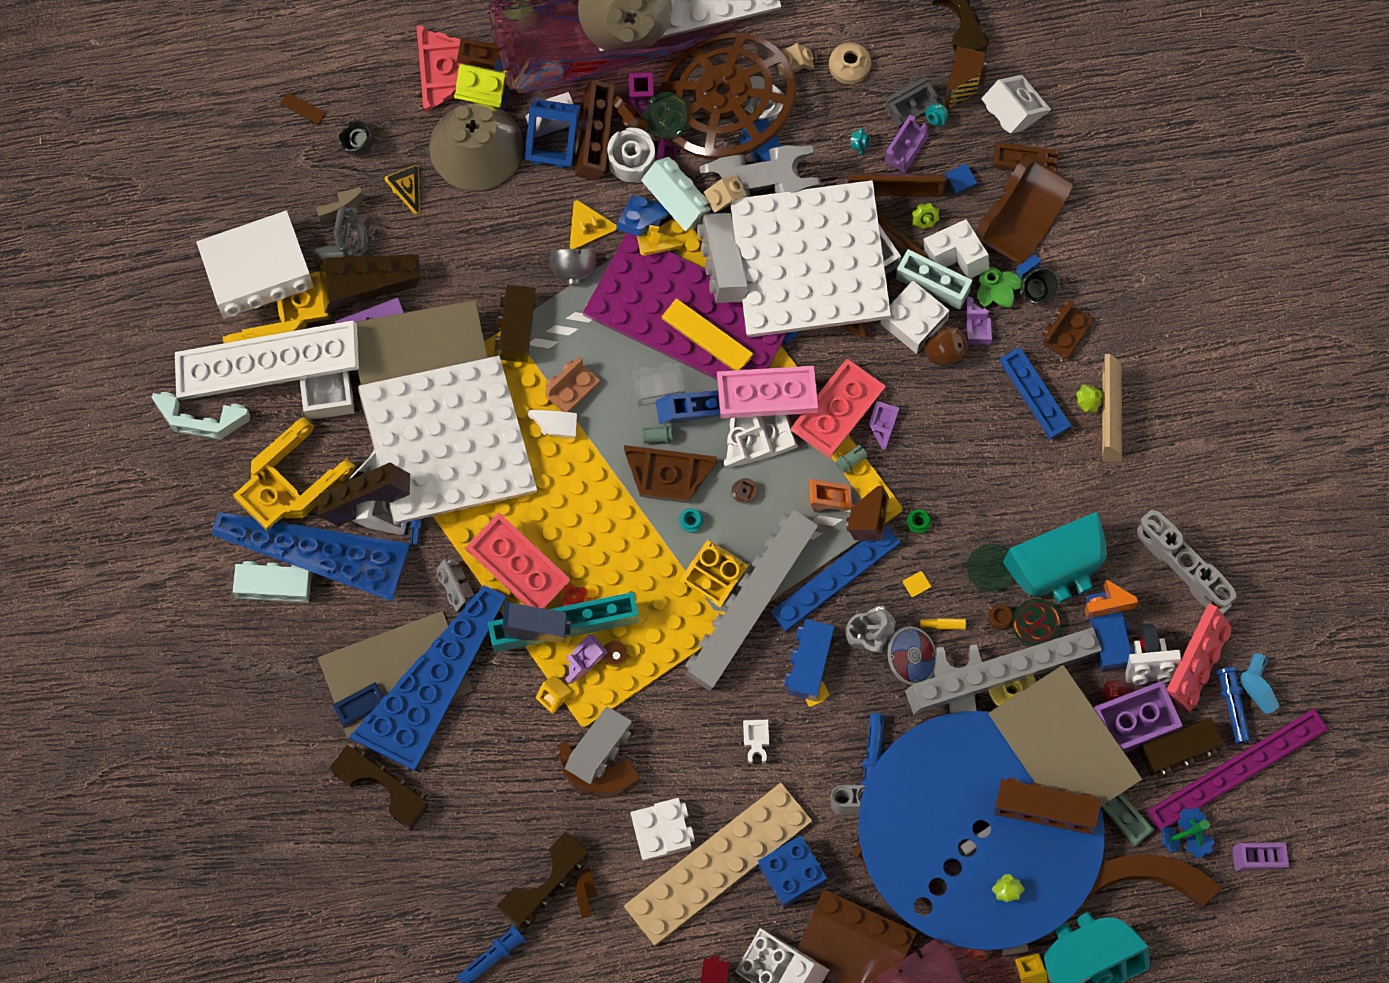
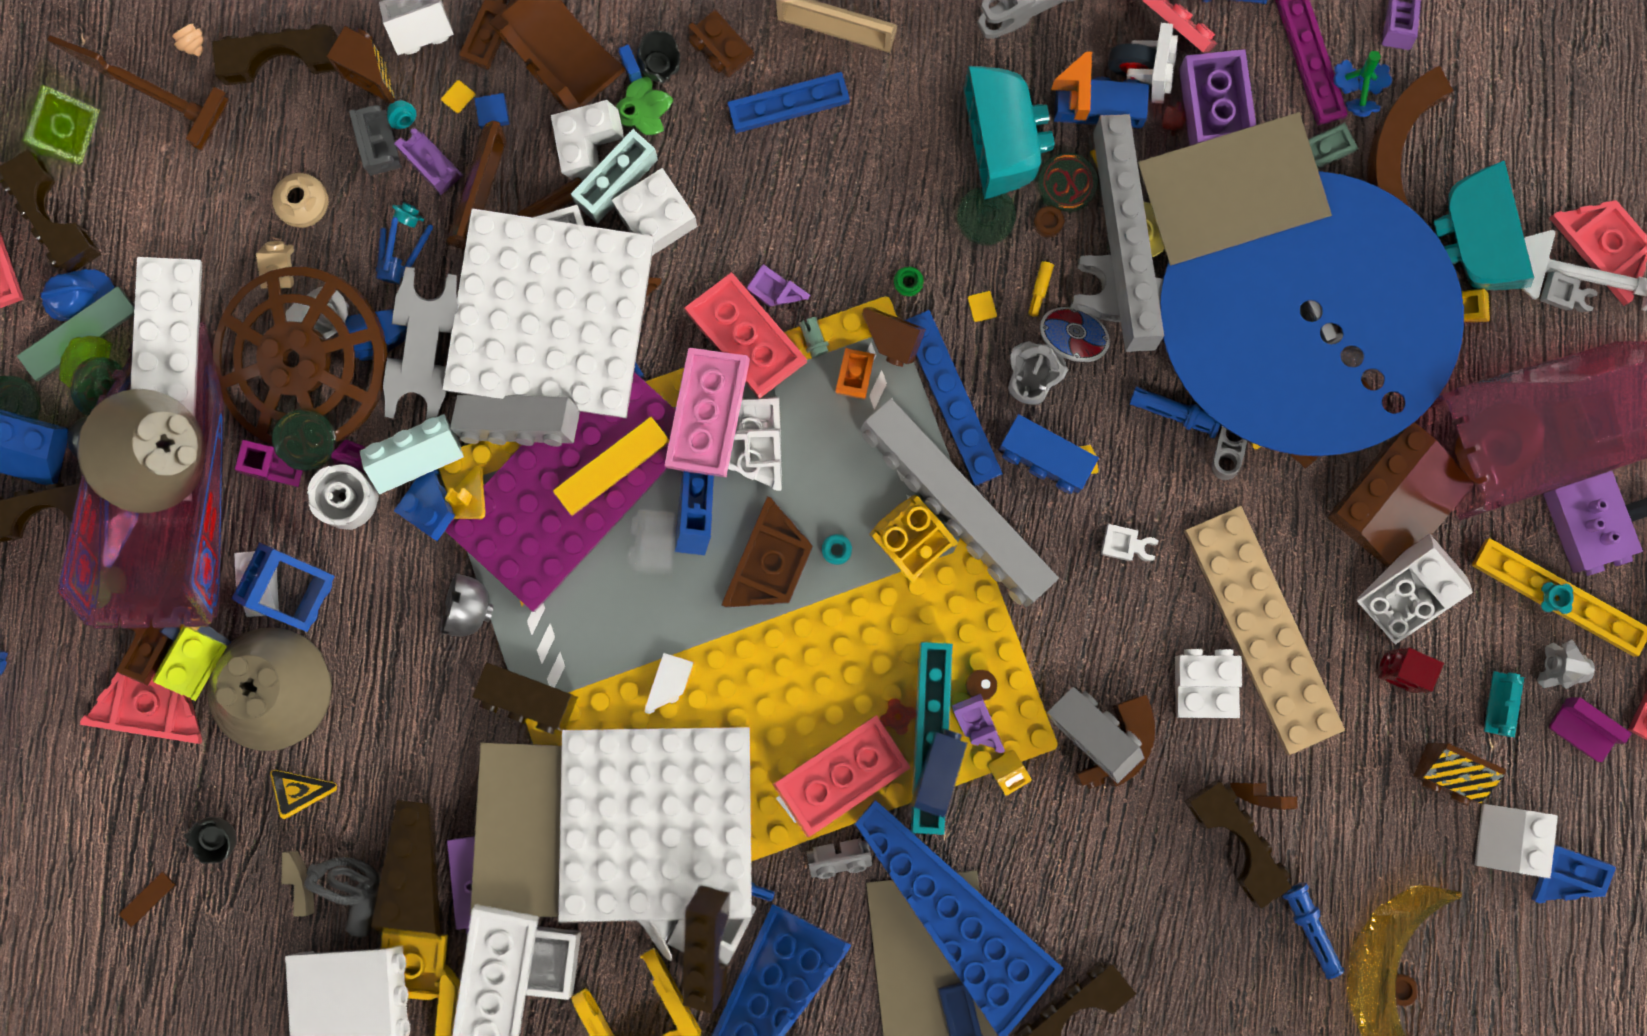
camera: 80 degrees left, 10 degrees up
(571, 385) = (626, 650): nougat bracket -> none
(588, 226) = (417, 576): yellow piece -> none
(594, 130) = (294, 534): reddish brown brick -> none
(631, 116) = (291, 482): reddish brown plate -> none
(657, 434) = (717, 561): sand green pin -> none
(724, 193) = (431, 393): tan bracket -> none
(744, 490) = (817, 475): reddish brown tile -> none
(792, 872) = (1299, 545): blue brick -> none
(816, 139) = (389, 267): none -> blue plant
(925, 215) = (527, 164): lime piece -> none
(946, 346) = (705, 184): reddish brown helmet -> none
(965, 152) = (458, 96): none -> yellow sticker
(977, 324) = (683, 144): medium lavender slope -> none
(1008, 888) = (1398, 298): lime piece -> none
(1047, 806) = (1309, 226): reddish brown brick -> none
(1089, 398) = (813, 41): lime piece -> none
(1182, 748) = (1265, 62): dark brown brick -> none

